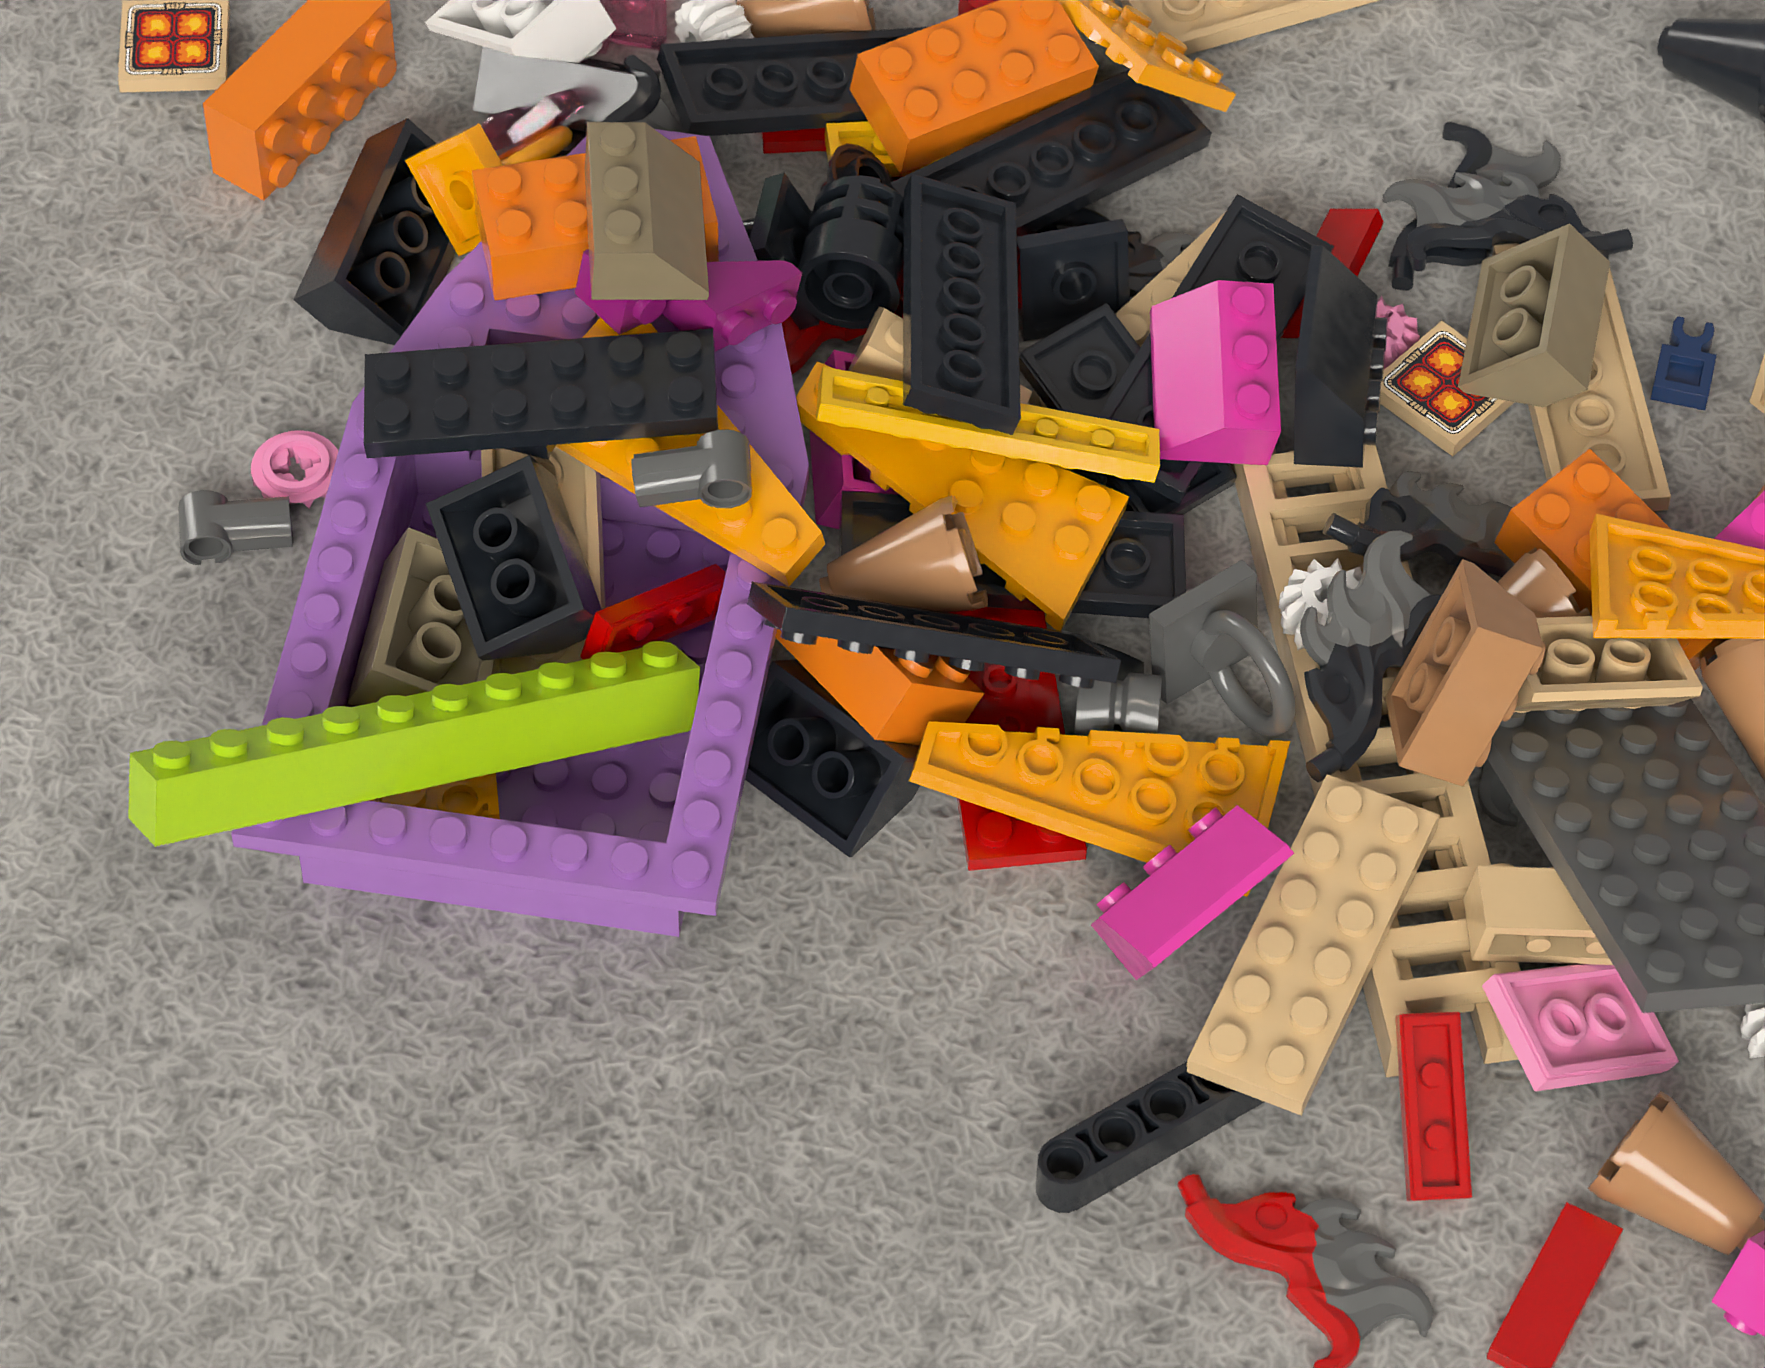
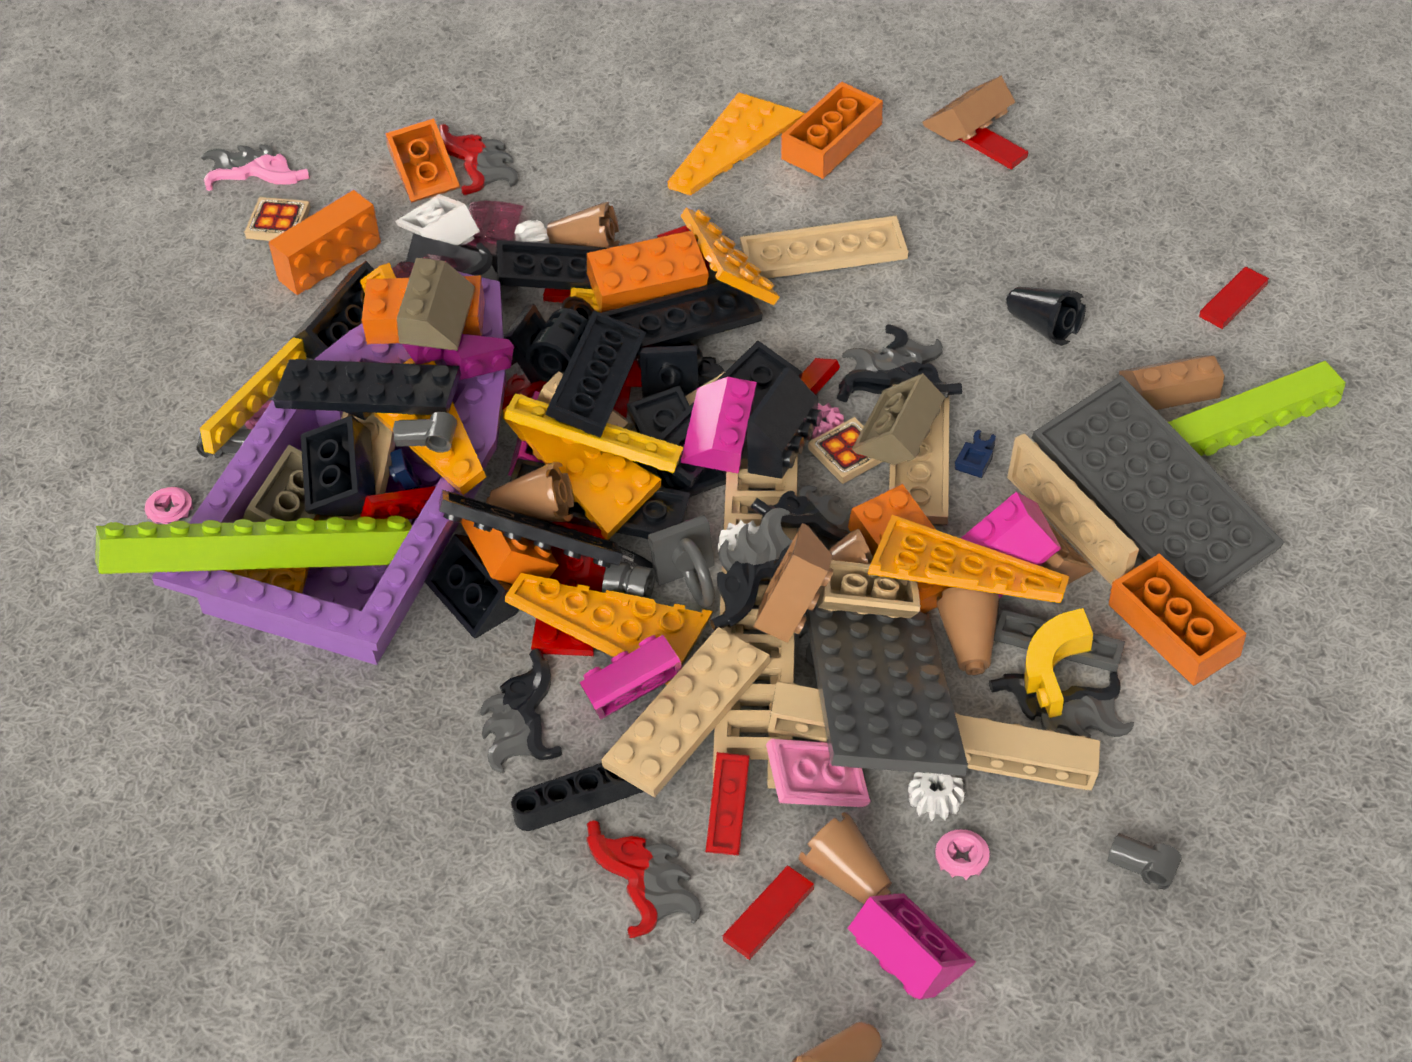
camera: 15 degrees right, 5 degrees down
(139, 670) = (162, 498): none -> bright pink gear
(268, 428) = (249, 398): none -> yellow plate
(629, 550) = (403, 471): none -> dark blue plate
(978, 1002) = (514, 716): none -> piece

